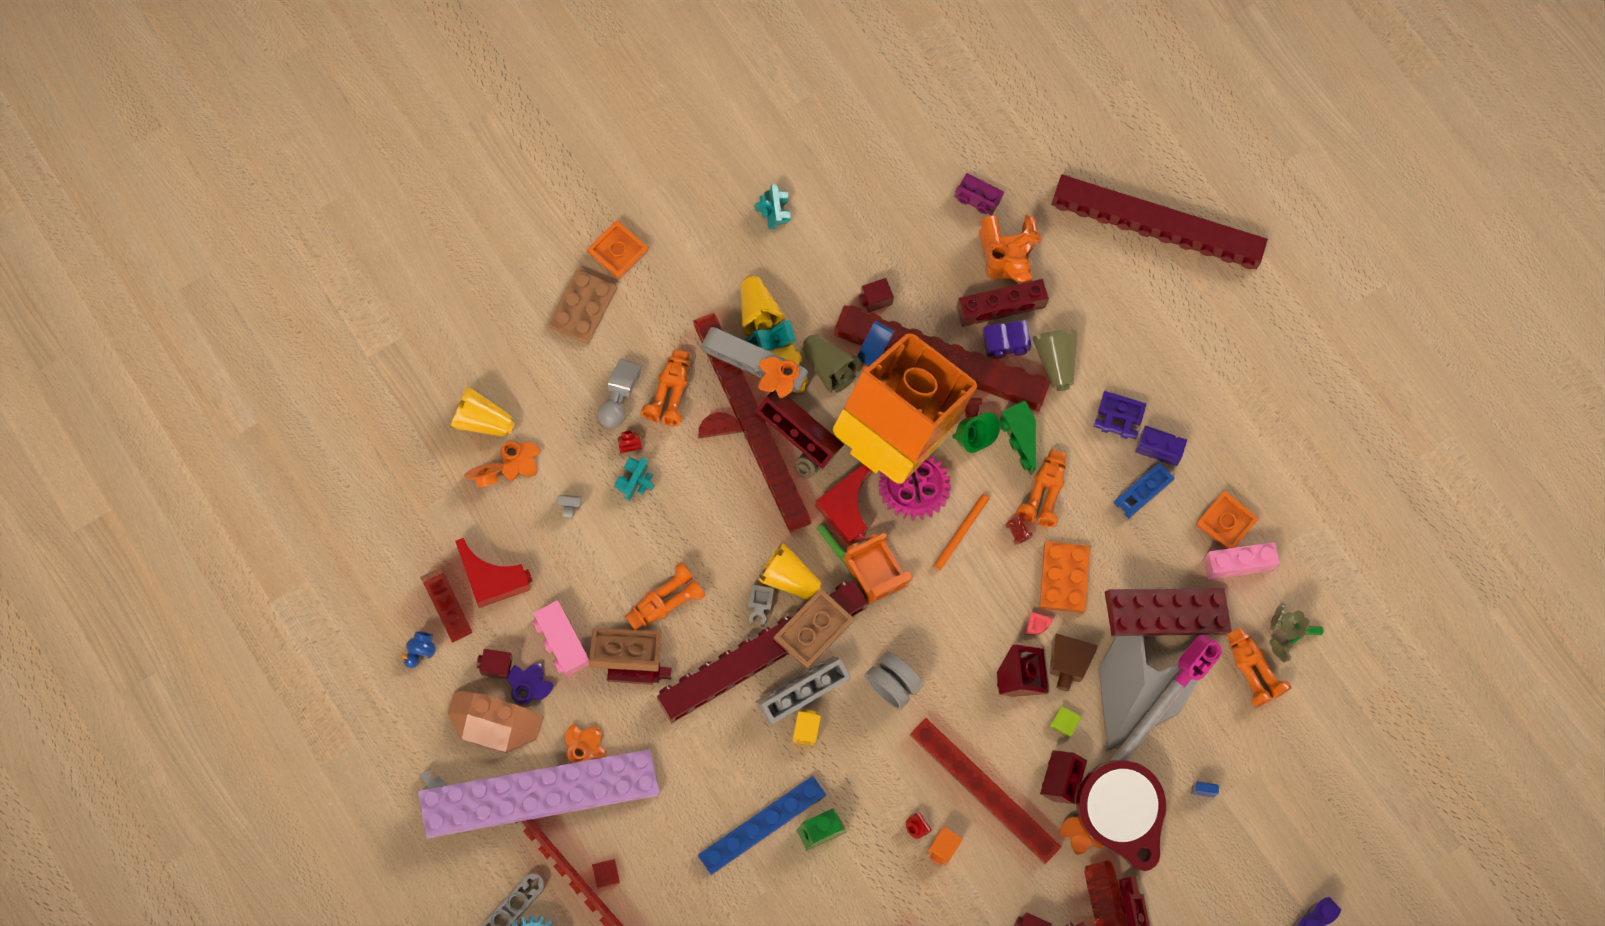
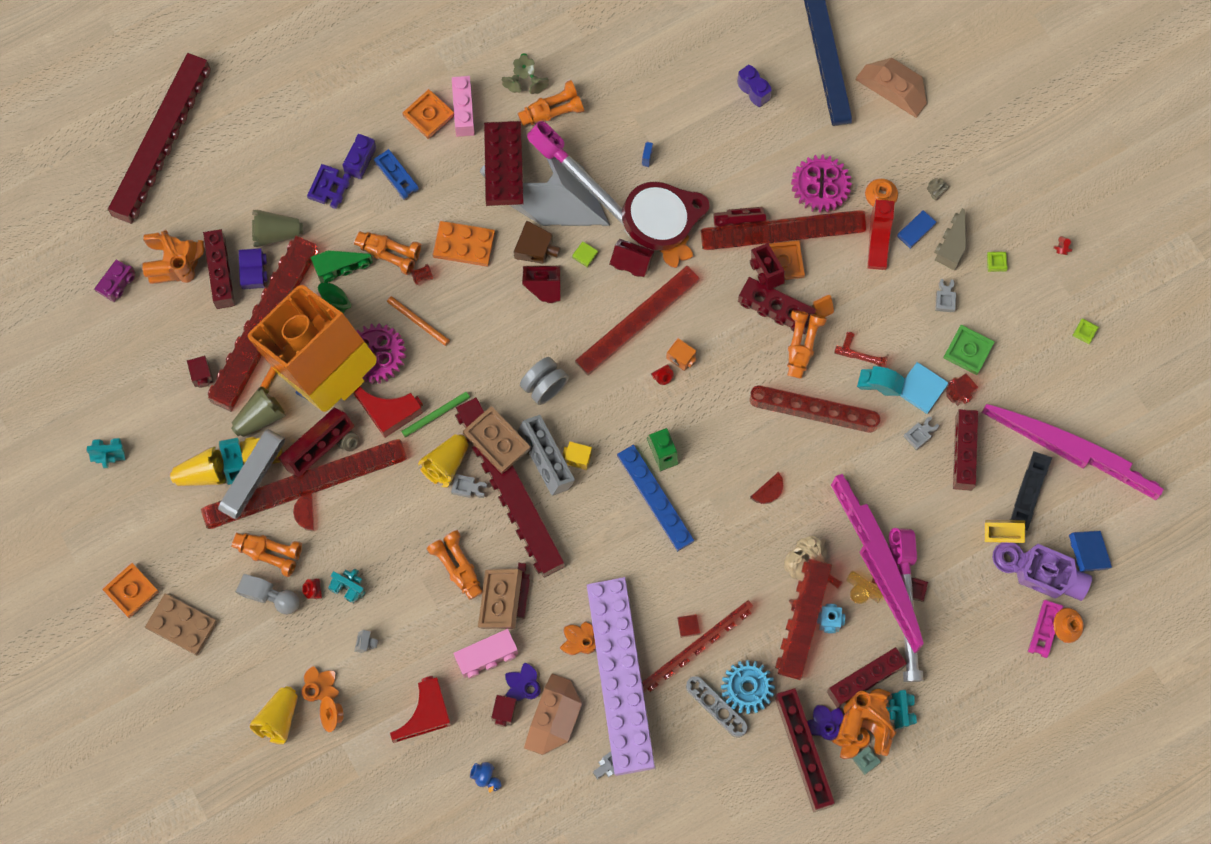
camera: 80 degrees left, 0 degrees up
(446, 604) = (446, 751): clear red slope -> none
(776, 378) = (272, 454): orange plate -> none
(875, 343) = (248, 372): blue slope -> none
(875, 568) = (446, 390): orange panel -> none
(1037, 624) = (501, 268): coral tile -> none

